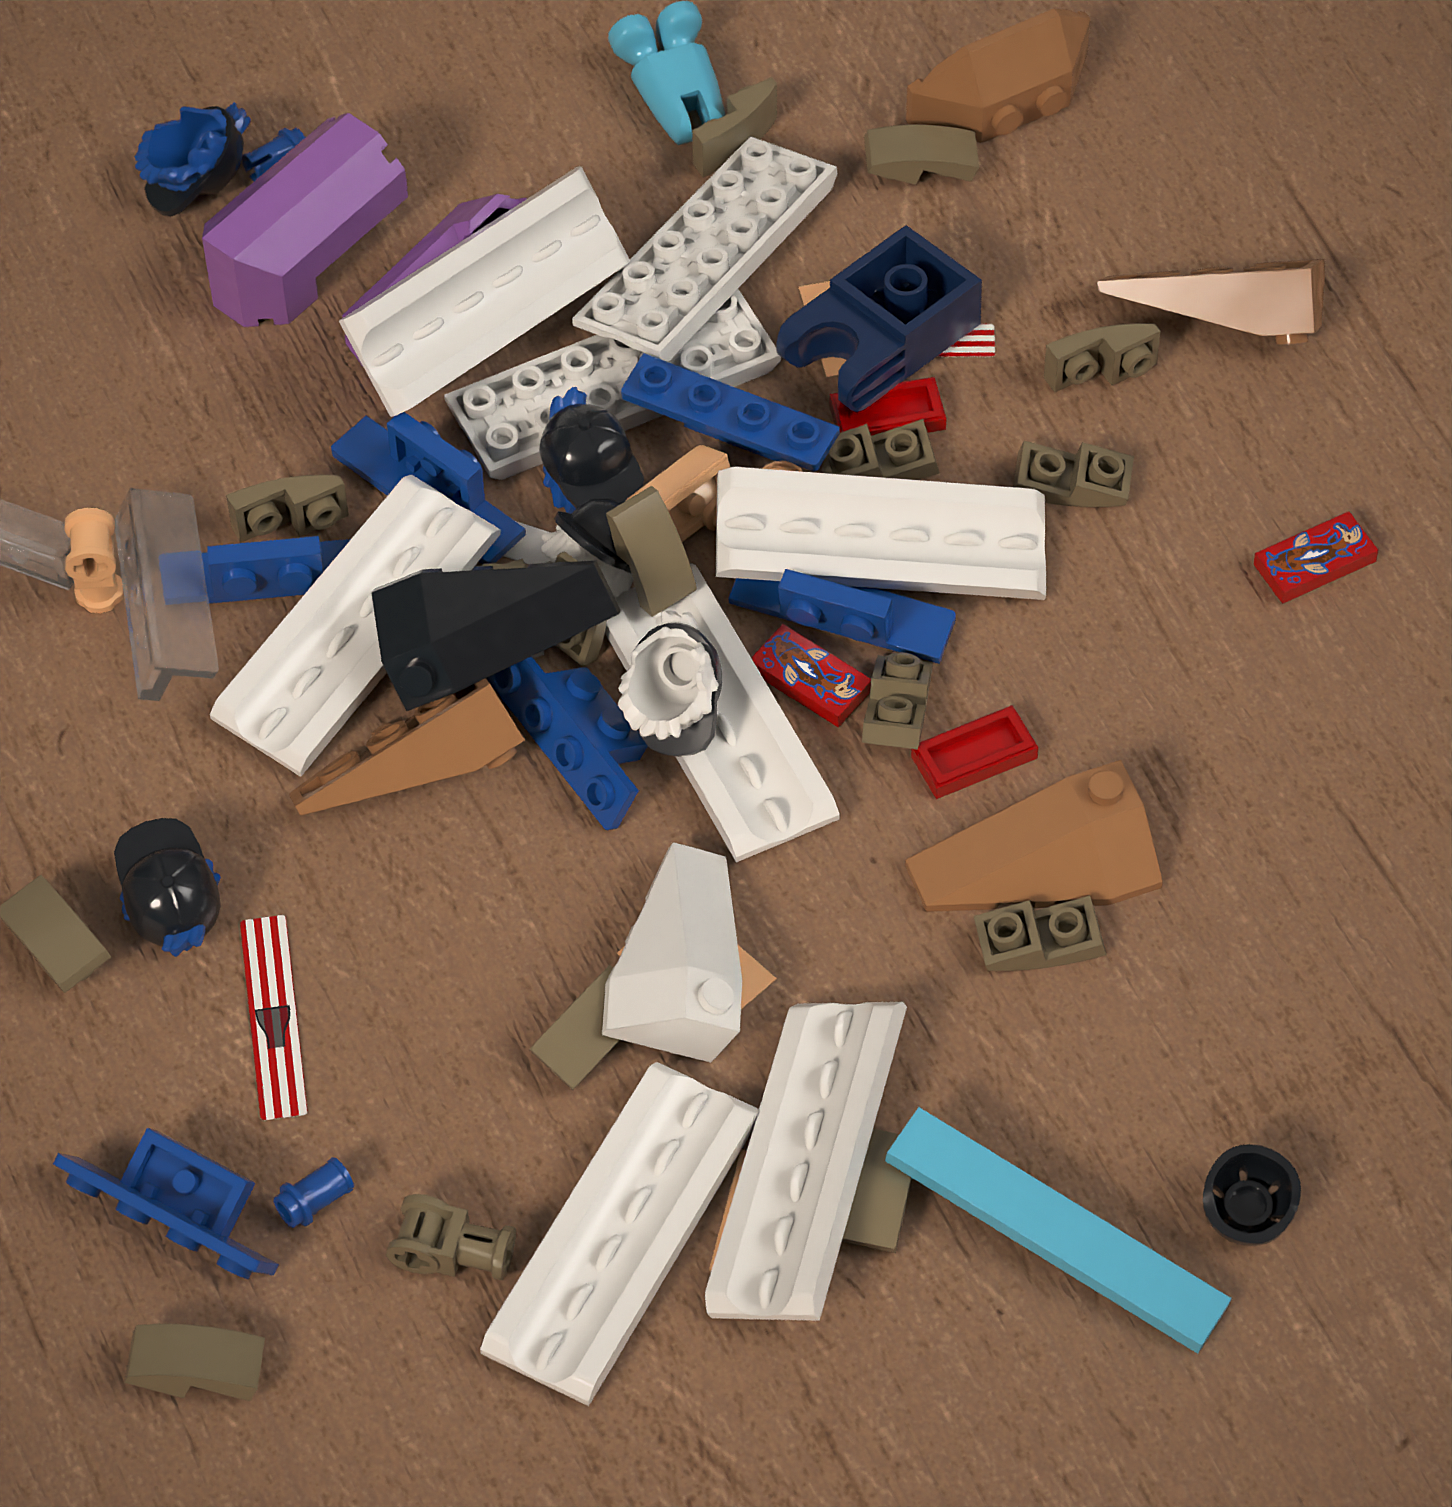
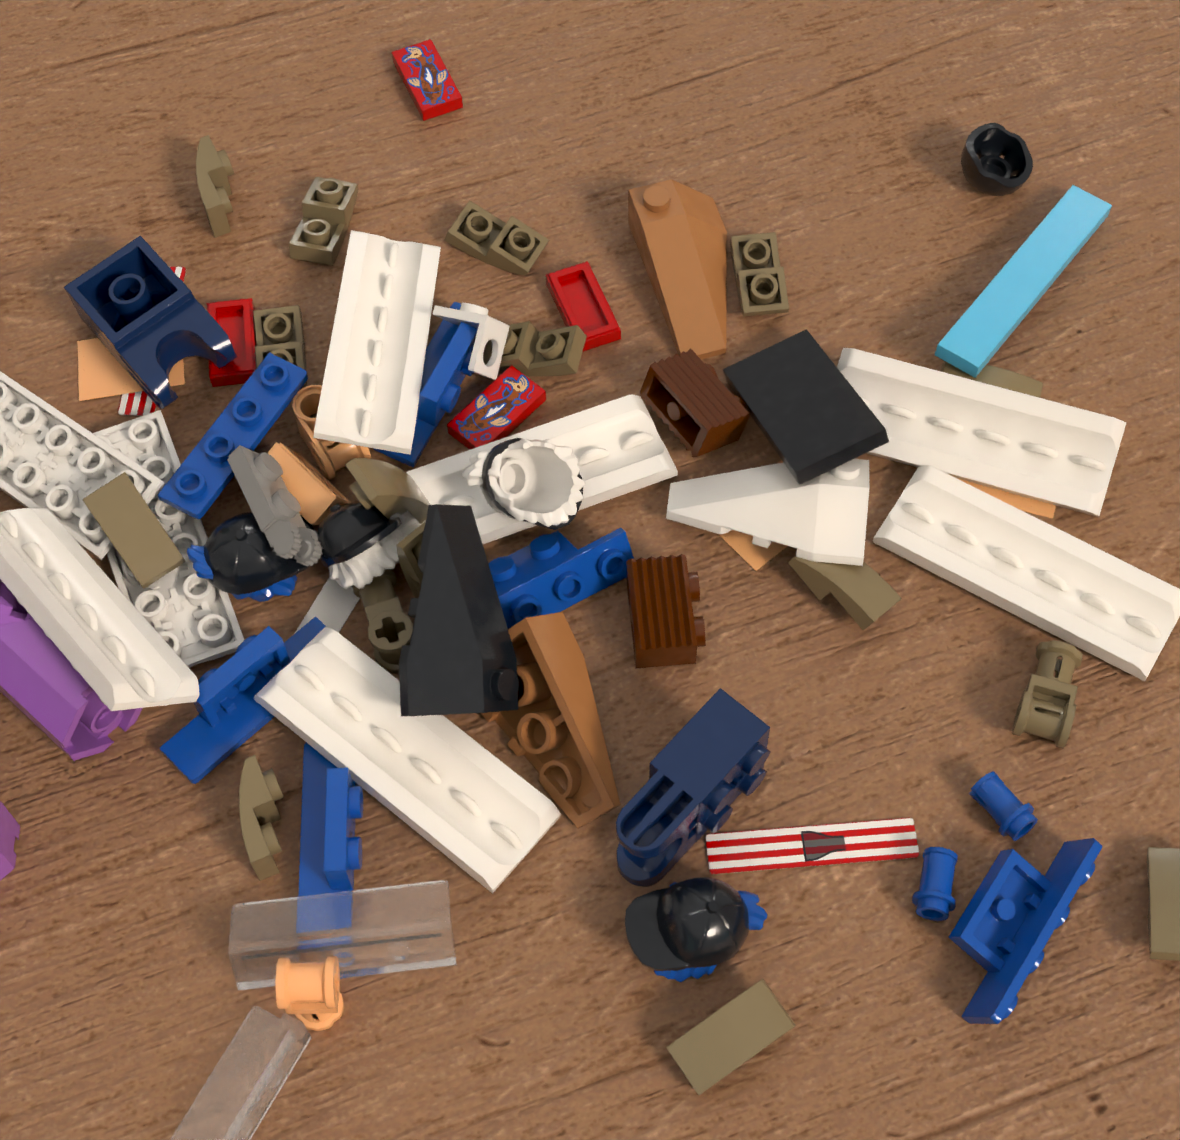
camera: 85 degrees left, 5 degrees up
(220, 1125) = (936, 884): none -> blue pin
(313, 868) = (691, 788): none -> dark blue brick
(542, 848) = (662, 611): none -> reddish brown brick
(589, 345) = (134, 530): none -> dark tan slope
(633, 452) = (274, 506): none -> light grey hinge
(813, 961) = (805, 406): none -> black tile
(825, 862) = (694, 403): none -> reddish brown brick
(897, 626) = (487, 330): none -> white bracket
(1064, 651) = (501, 244): none -> dark tan slope
(1260, 300) = (173, 83): wedge -> none

